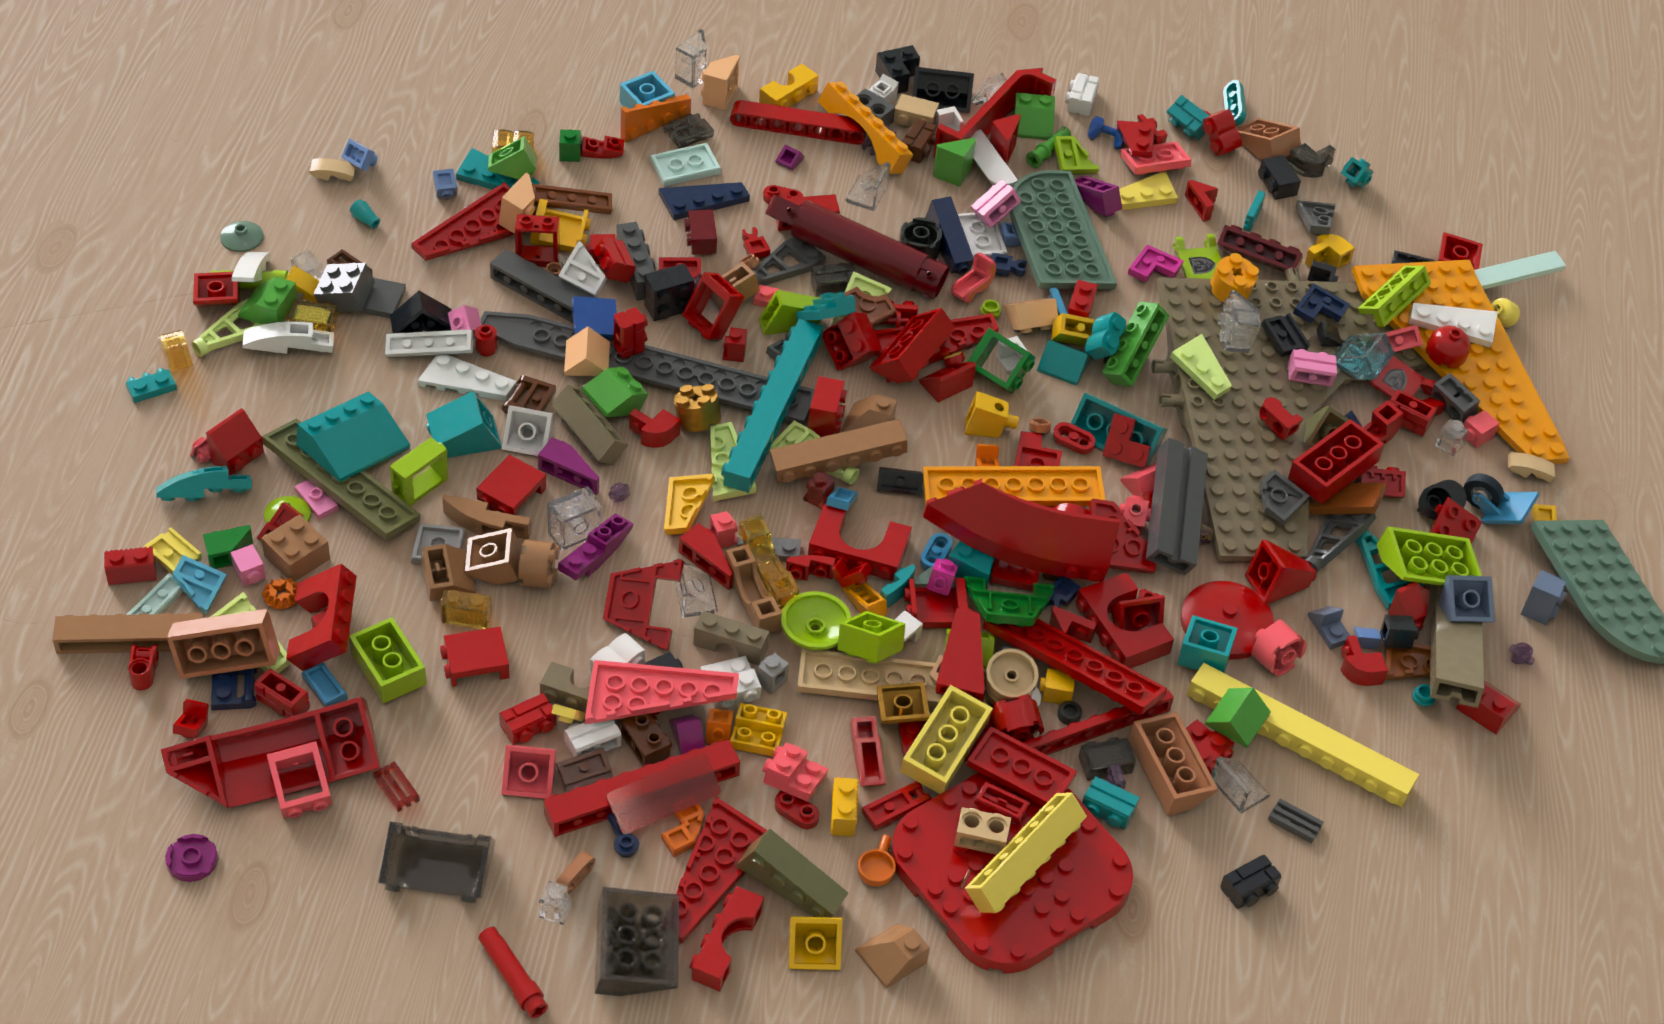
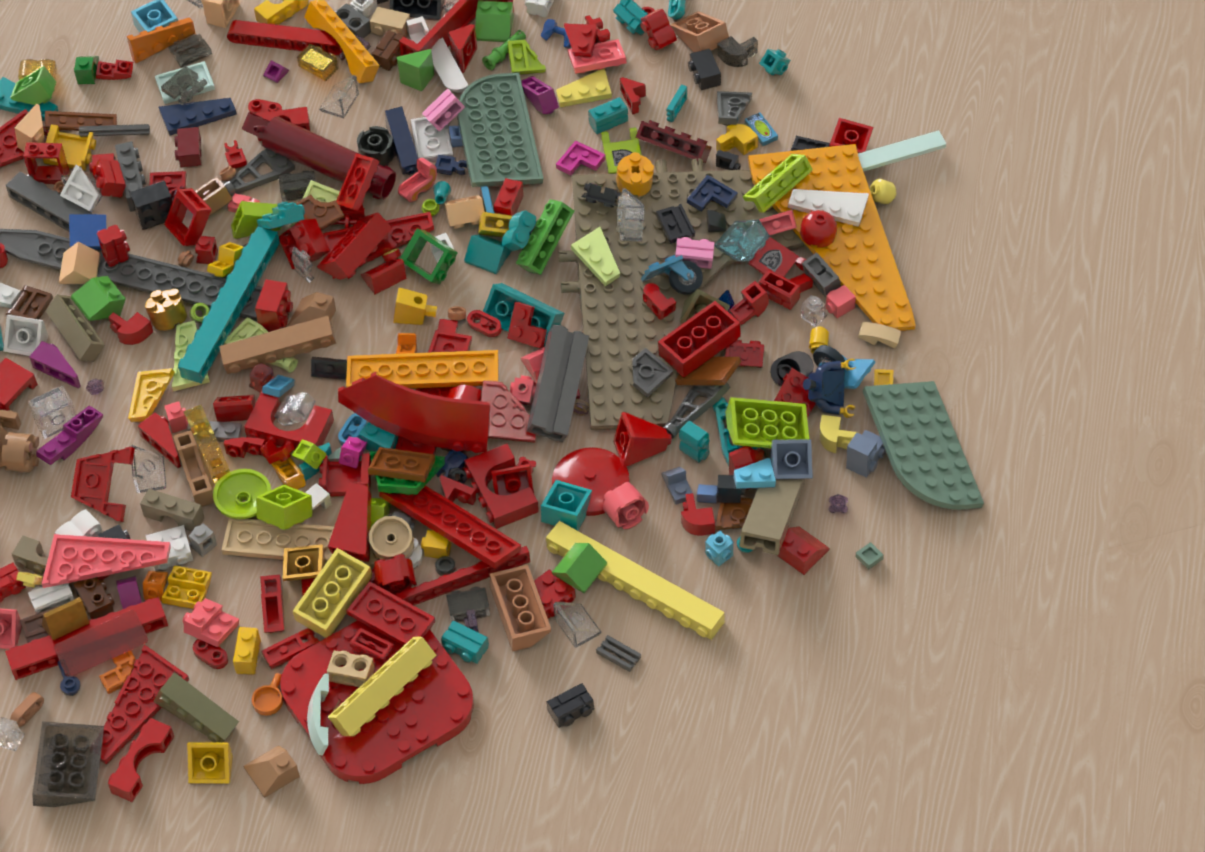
camera: 10 degrees right, 5 degrees up
(607, 210) = (115, 130): none -> dark grey axle
(618, 762) = (65, 619): none -> pearl gold slope
(685, 160) = (180, 82): none -> clear smoke plate
(711, 353) = (185, 259): none -> nougat plate
(737, 412) = (199, 307): none -> lime brick
(763, 356) = (228, 255): none -> yellow brick
(792, 522) = (233, 407): none -> red slope
(838, 149) = (318, 62): none -> clear yellow brick
(853, 363) = (302, 264): none -> clear slope
(867, 524) = (295, 408): none -> clear brick
(893, 575) = (309, 454): none -> lime bracket
(912, 274) = (357, 182): none -> red plate
(954, 911) = (318, 734): none -> light aqua slope
(1002, 292) = (441, 191): none -> teal cone
(1008, 591) = (401, 464): none -> dark orange tile
(1076, 609) = (462, 475): none -> black bush
(1179, 220) = (608, 115): none -> teal brick
(1207, 302) = (594, 194): none -> black hinge
(1304, 390) = (684, 276): none -> plate
(1347, 577) = (694, 441): none -> teal brick
(1361, 249) = (762, 128): none -> tile
(1395, 700) = (719, 548): none -> medium azure brick
(1430, 616) = (755, 475): none -> medium azure wing
(1463, 468) = (818, 337): none -> yellow brick
(1490, 521) = (827, 388): none -> dark blue torso
(1504, 577) = (832, 436): none -> light yellow brick
(1571, 713) = (869, 556): none -> sand green plate

